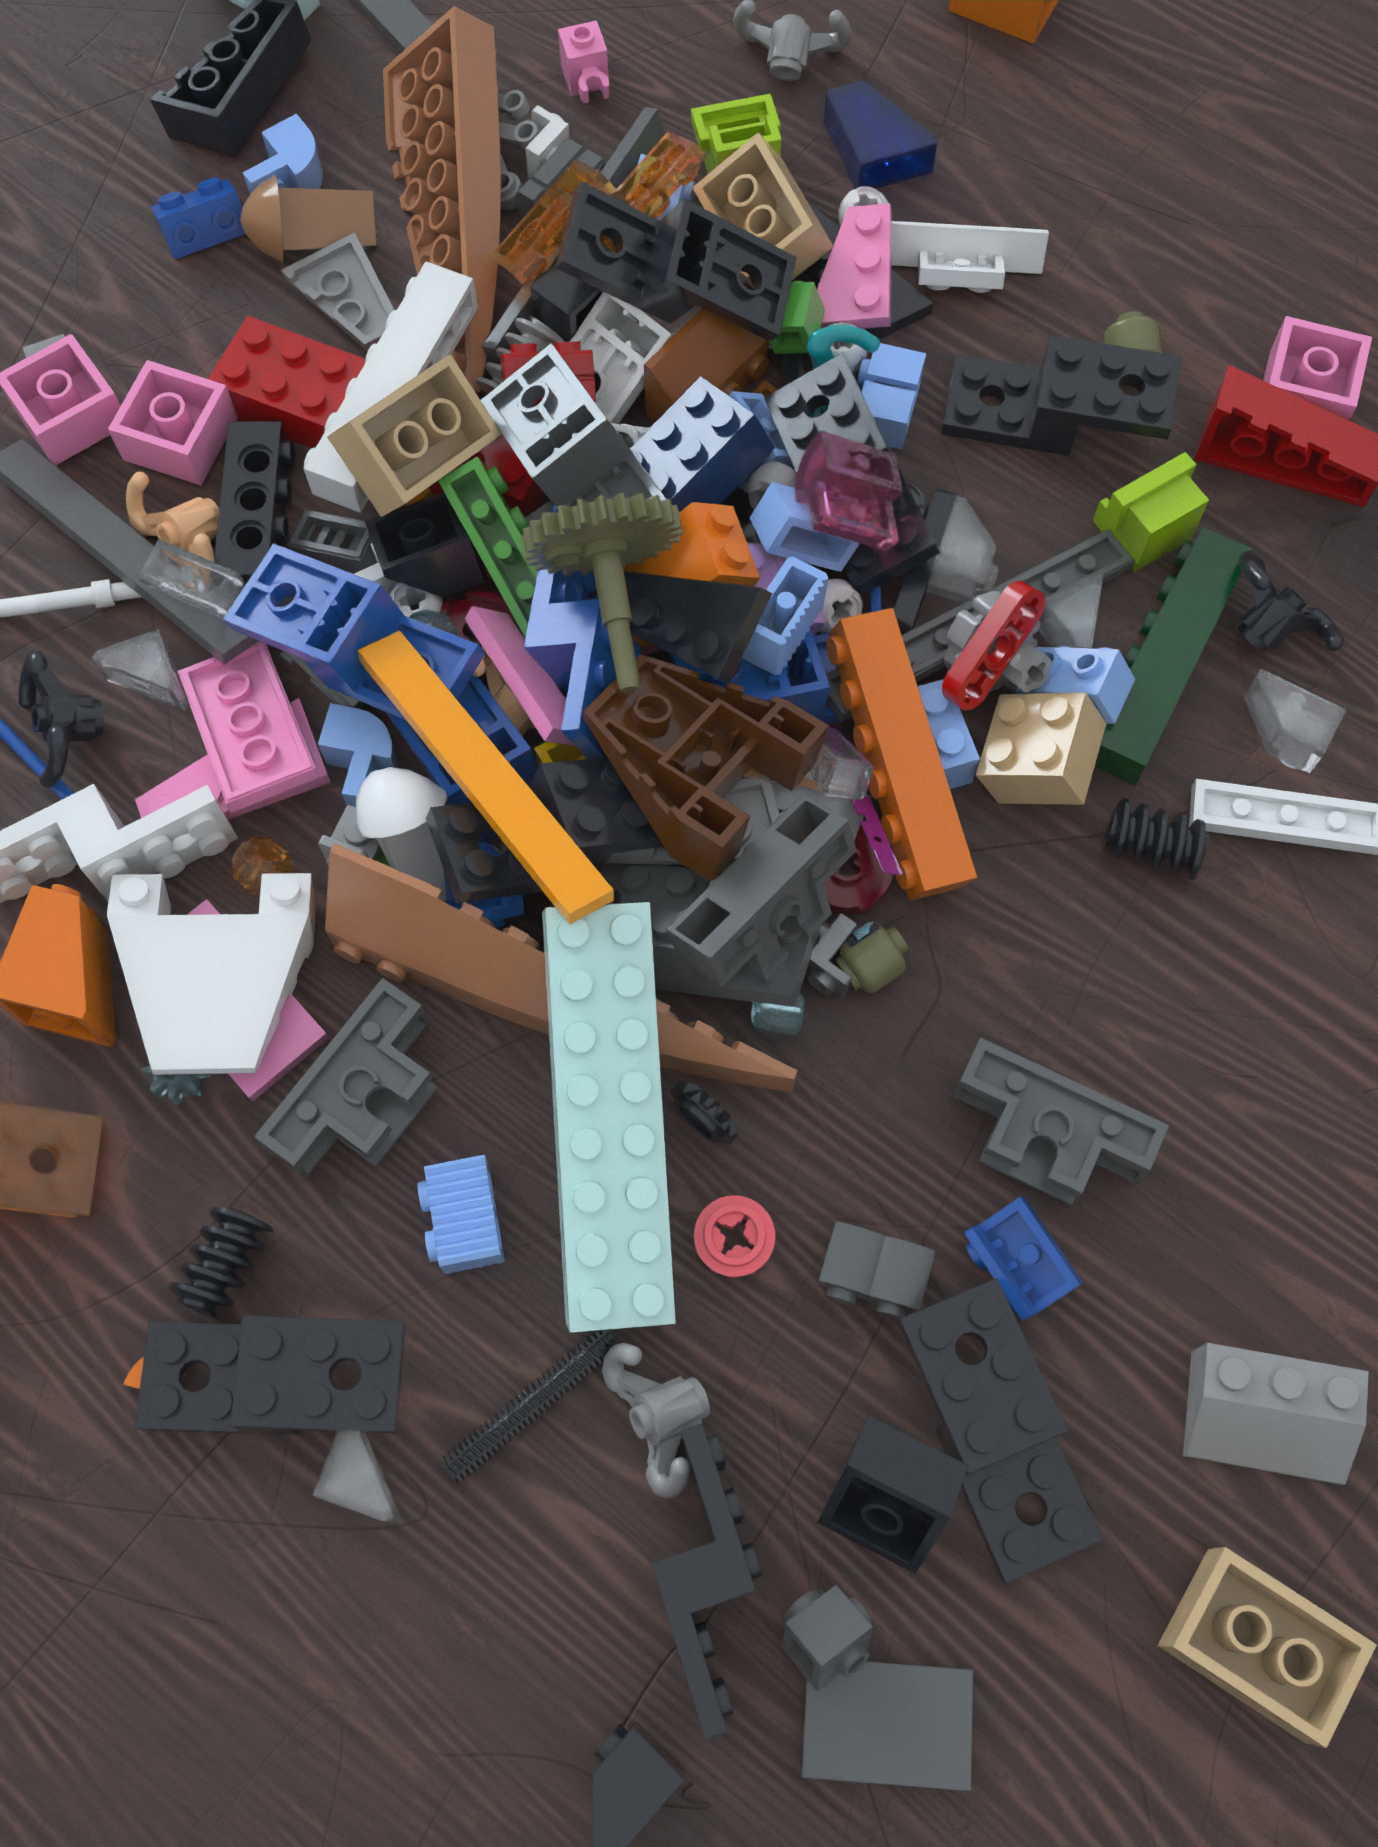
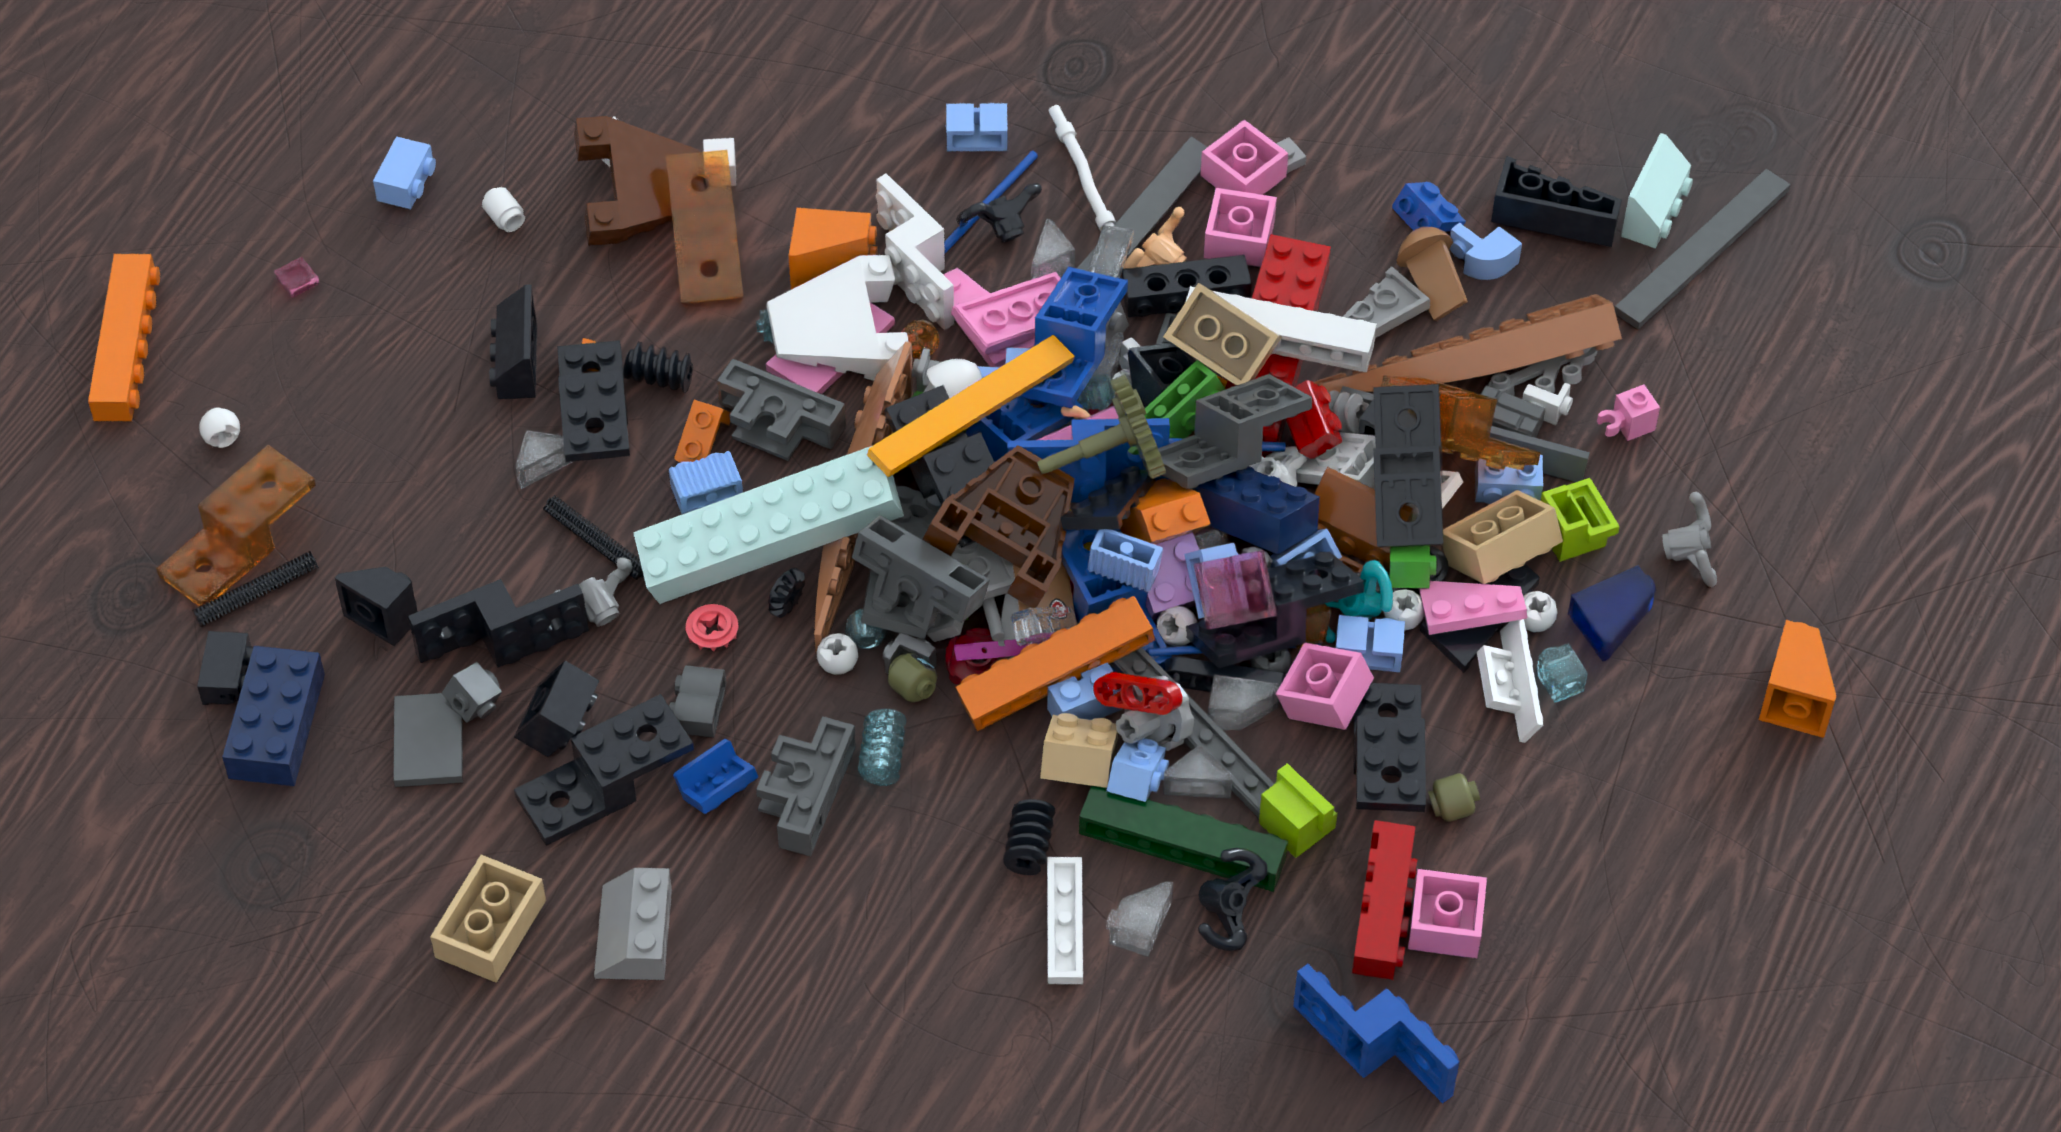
camera: 80 degrees right, 15 degrees down
(120, 1501) = (515, 346): none -> black slope
(364, 1209) = (700, 431): none -> orange bracket
(833, 1056) = (835, 663): none -> white piece
(959, 200) = (1561, 672): none -> clear light blue brick
(966, 444) = (1324, 685): none -> bright pink brick
(991, 1013) = (882, 746): none -> clear light blue piece

